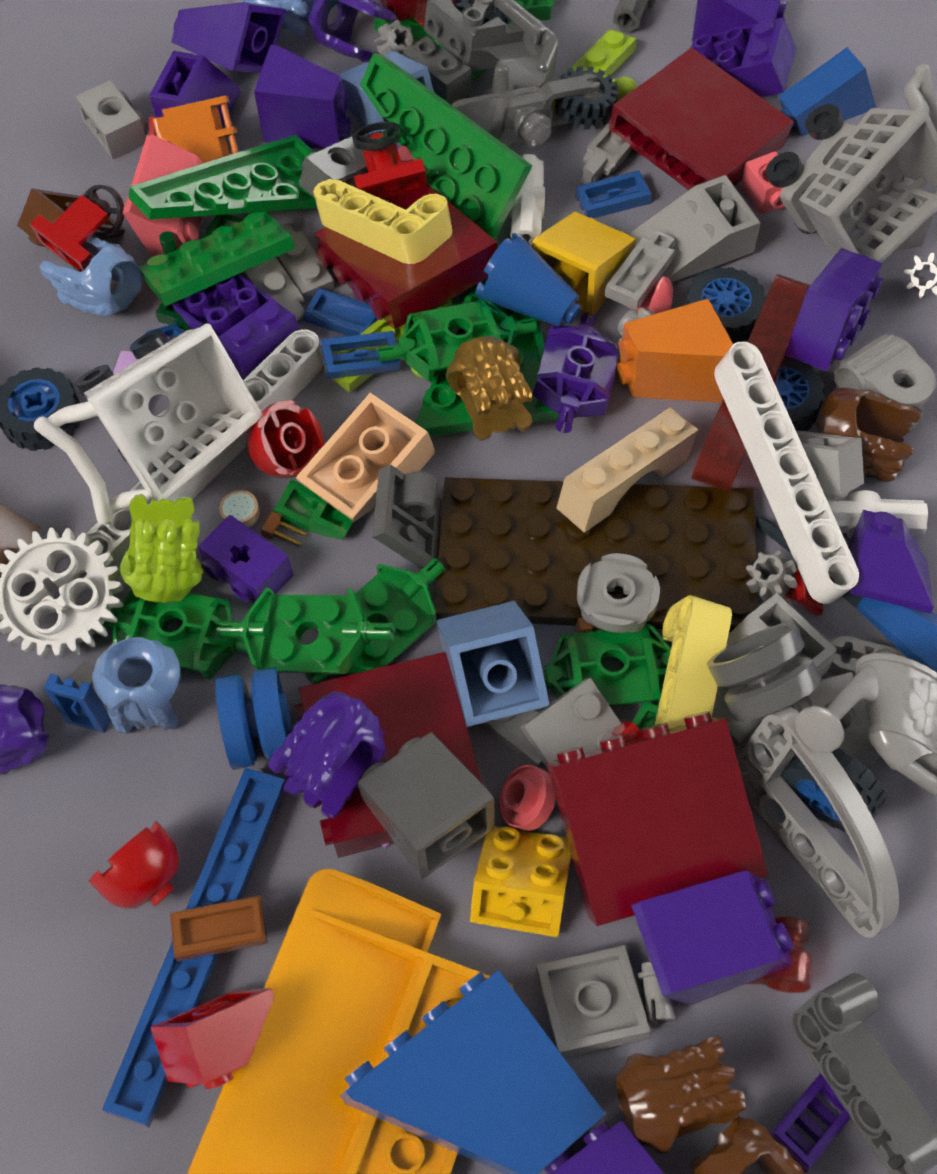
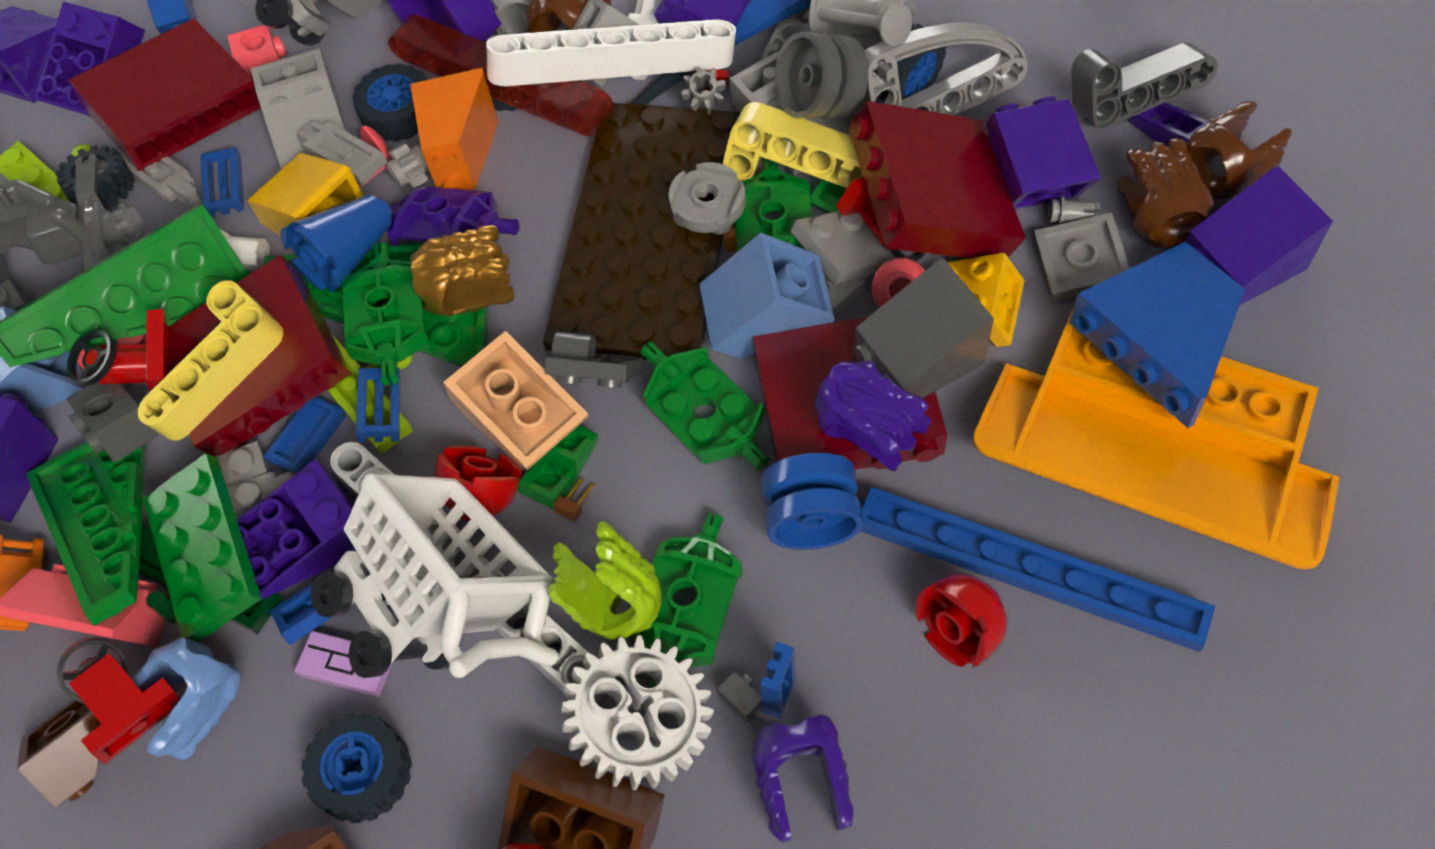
camera: 80 degrees left, 0 degrees up
(138, 662) = (783, 625): medium blue piece -> none
(212, 1038) = (1139, 530): red slope -> none
(218, 928) = (1027, 540): dark orange tile -> none
(241, 506) = (540, 537): light aqua tile -> none
(244, 560) = (625, 508): dark purple brick -> none
(277, 623) = (715, 418): green plate -> none
(598, 485) = (592, 191): tan arch -> none

